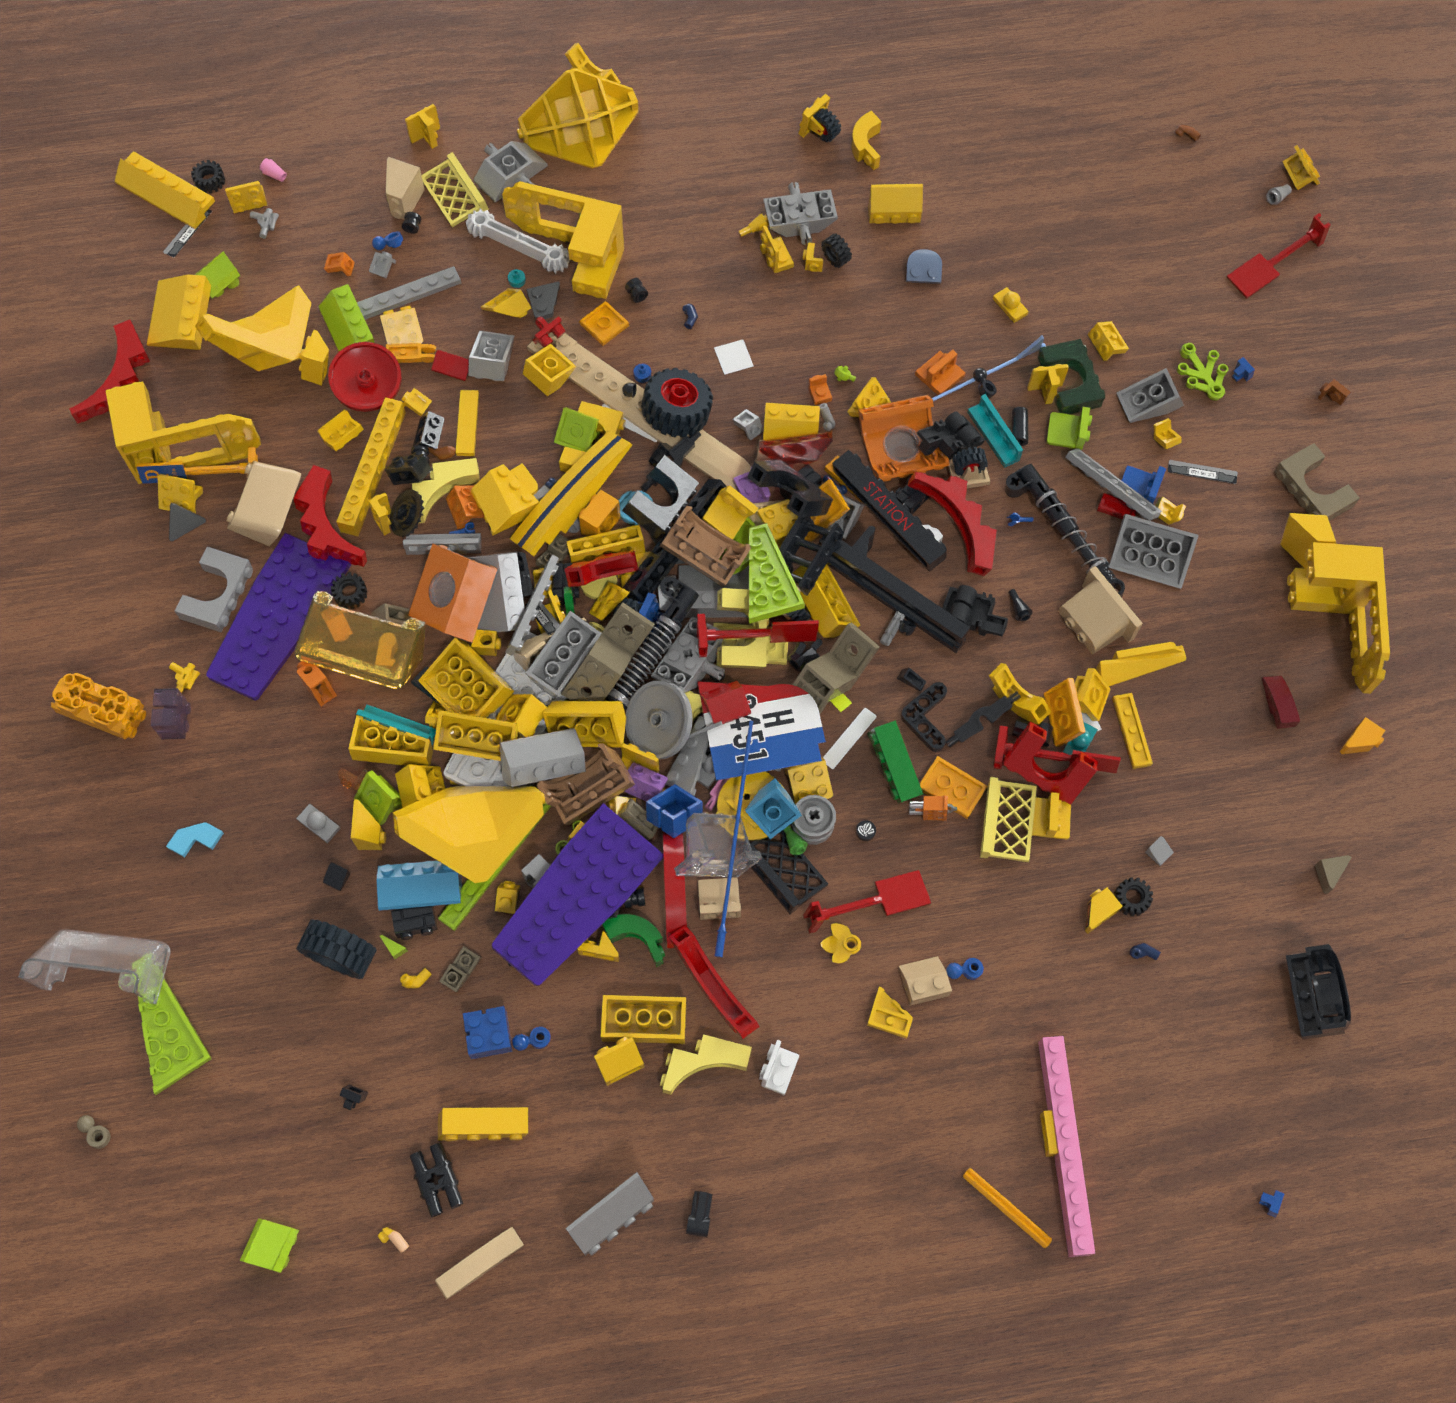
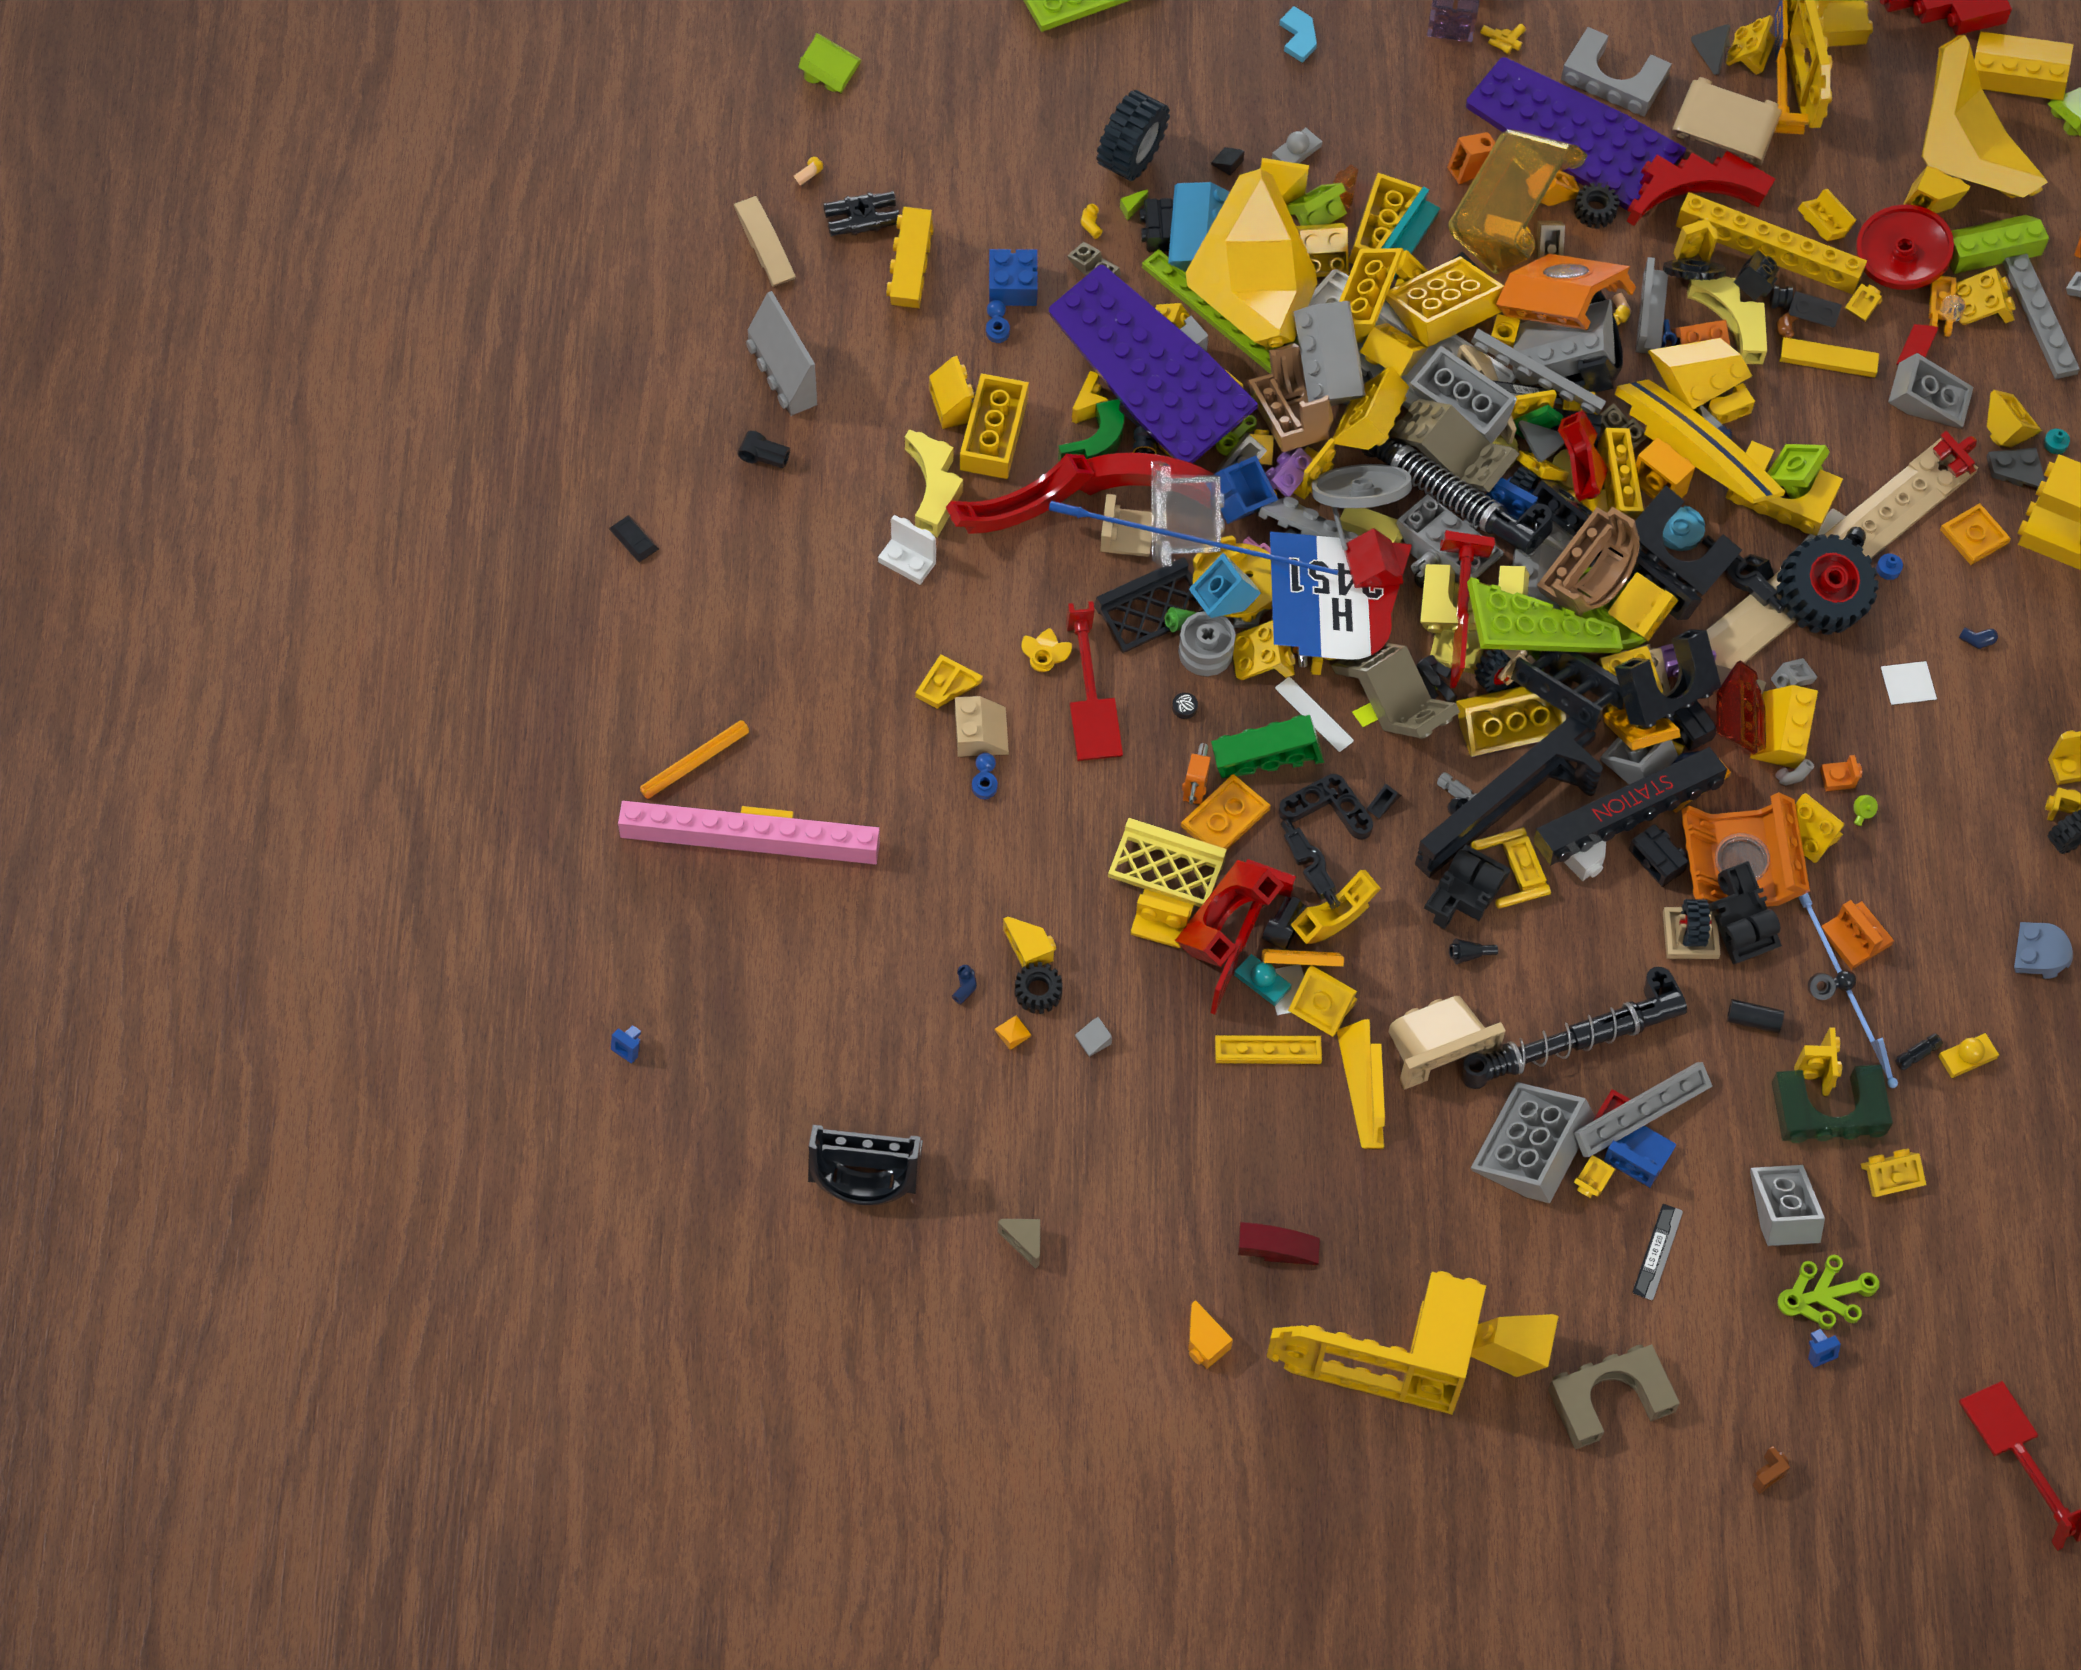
camera: 100 degrees right, 5 degrees down
(353, 1096) = (971, 148): black tile -> none
(417, 343) = (1952, 308): none -> clear piece
(548, 369) = (1899, 450): yellow slope -> none
(587, 599) = (1541, 440): none -> dark grey piece
(637, 291) = (2022, 576): black wheel -> none
(806, 1312) = (633, 538): none -> black tile
(945, 578) = (1523, 864): none -> yellow plate
(966, 514) = (1576, 917): red arch -> none
(995, 432) = (1749, 982): teal fence -> none
(1016, 332) = (1919, 1051): none -> black axle
(1016, 519) = (1605, 985): blue hand -> none
(1069, 430) = (1744, 1078): lime bracket -> none
(1165, 435) = (1720, 1208): yellow bracket -> none
(1171, 910) = (1013, 1032): none -> light orange slope

